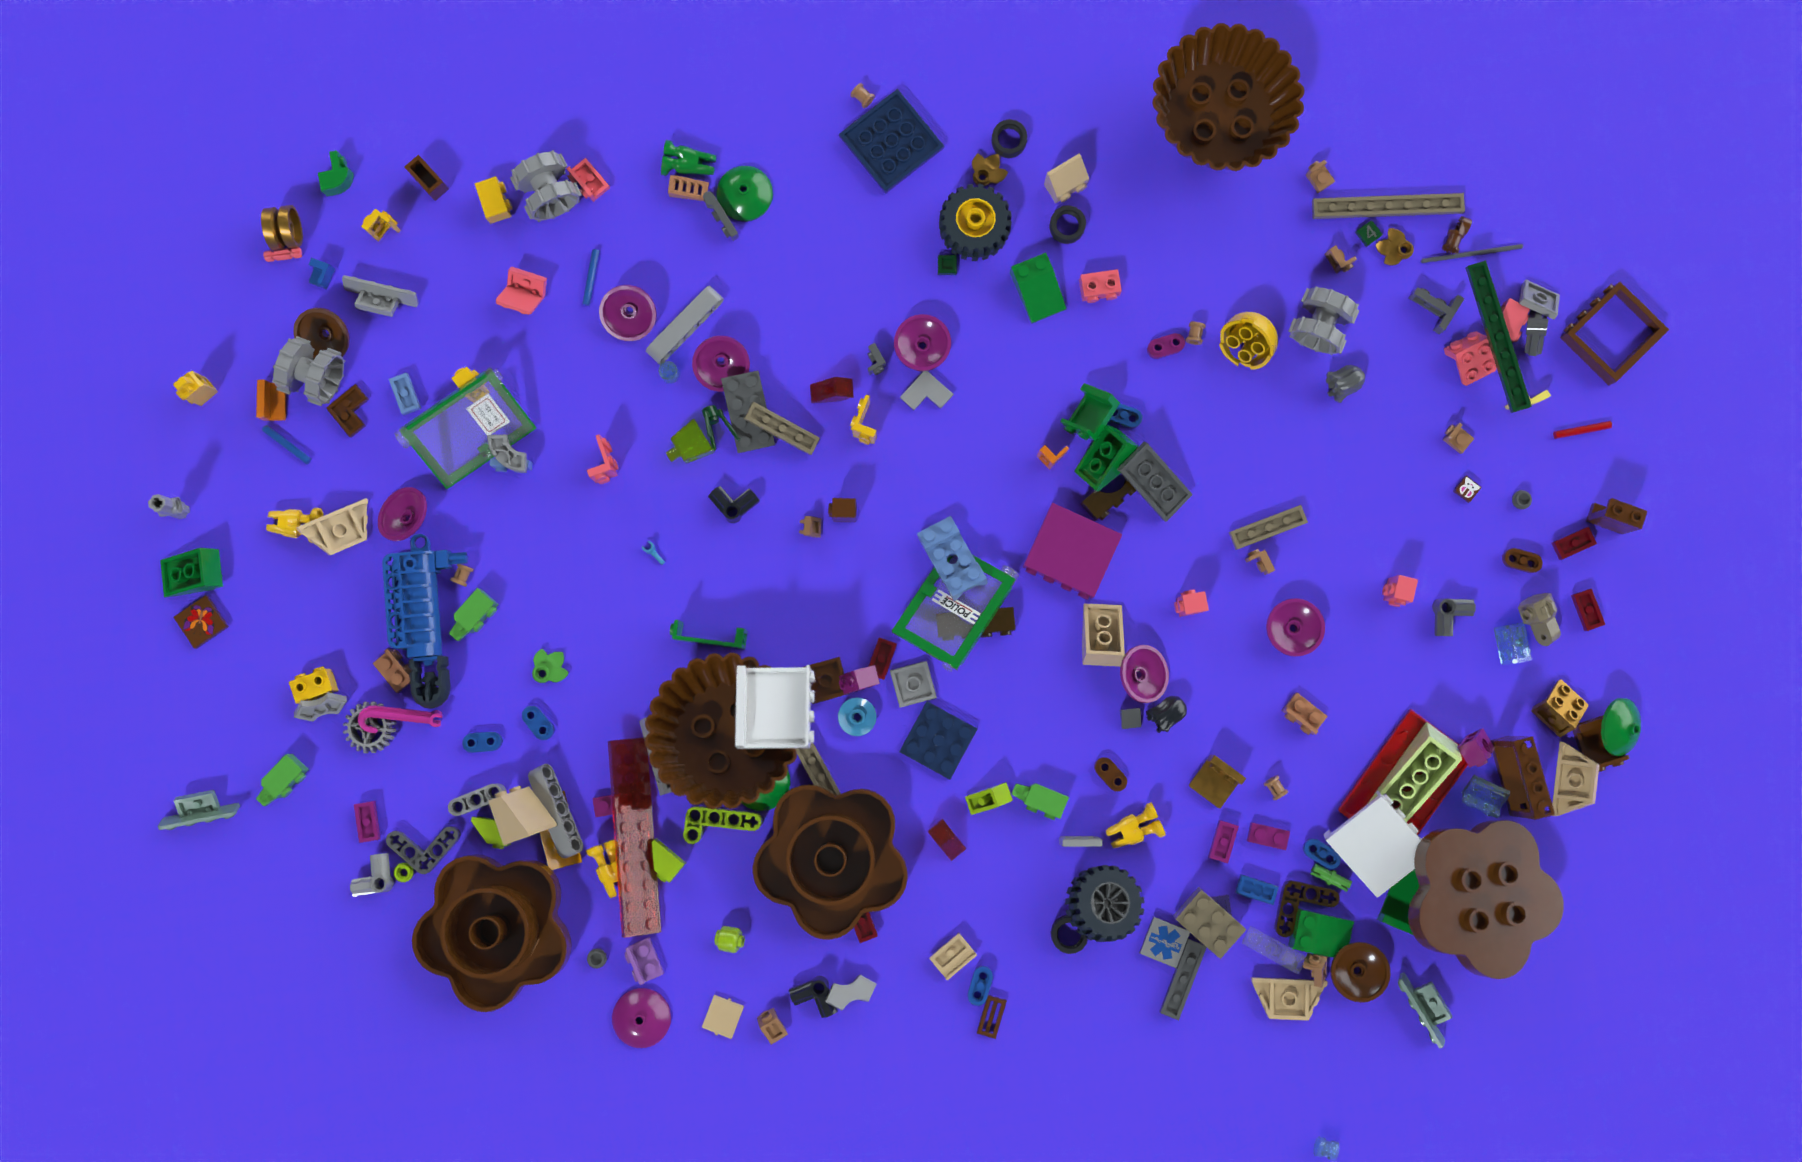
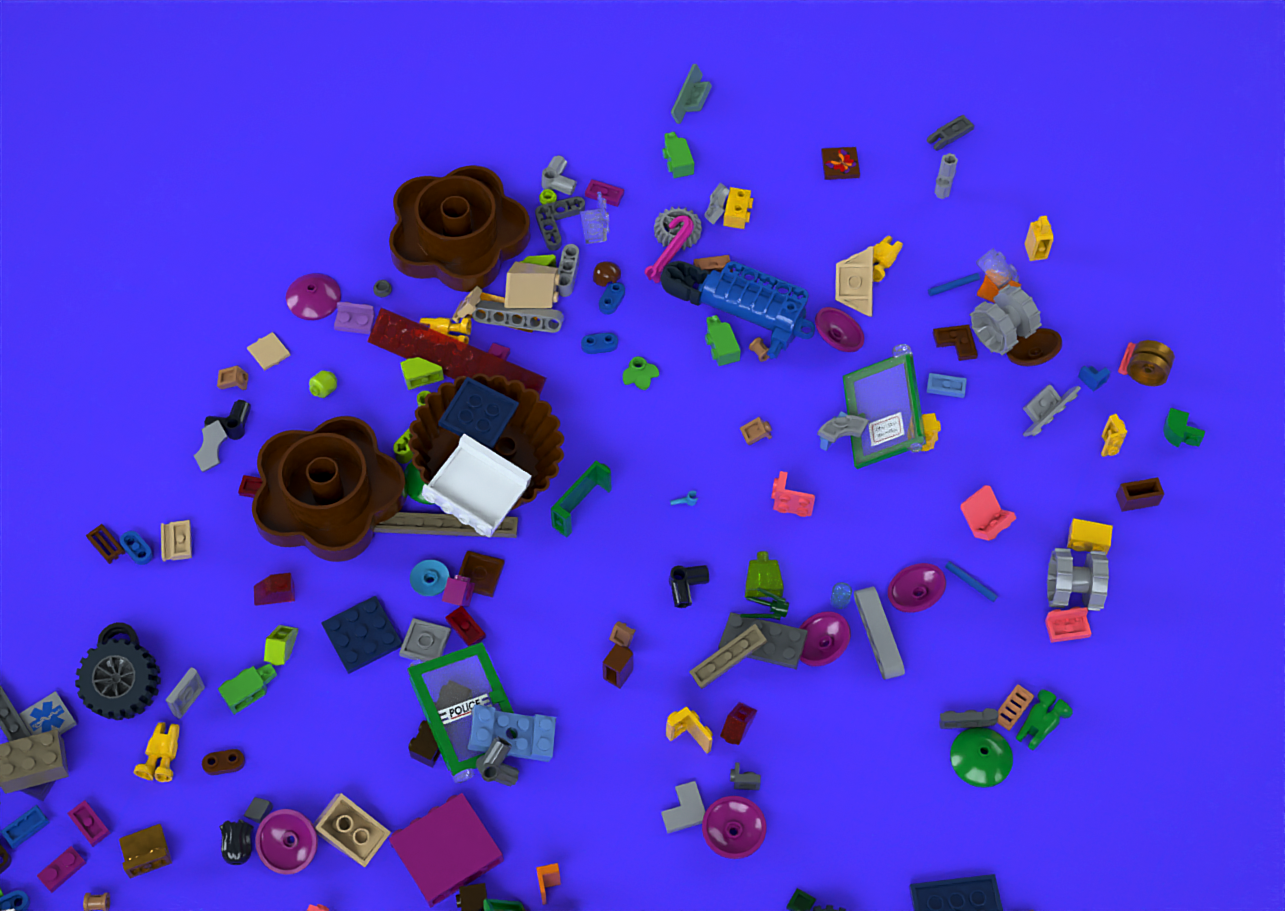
camera: 120 degrees right, 25 degrees down
(101, 536) = (950, 132): none -> dark grey hinge
(191, 572) = (883, 174): green slope -> none
(254, 407) = (997, 269): none -> clear bracket
(407, 808) = (596, 222): none -> clear bracket
(460, 761) = (606, 272): none -> reddish brown hair
(550, 530) = (756, 430): none -> medium nougat bracket
(572, 862) = (469, 304): none -> tan plate
(703, 751) = (479, 413): none -> dark blue plate
(985, 551) = (493, 759): none -> dark grey piece

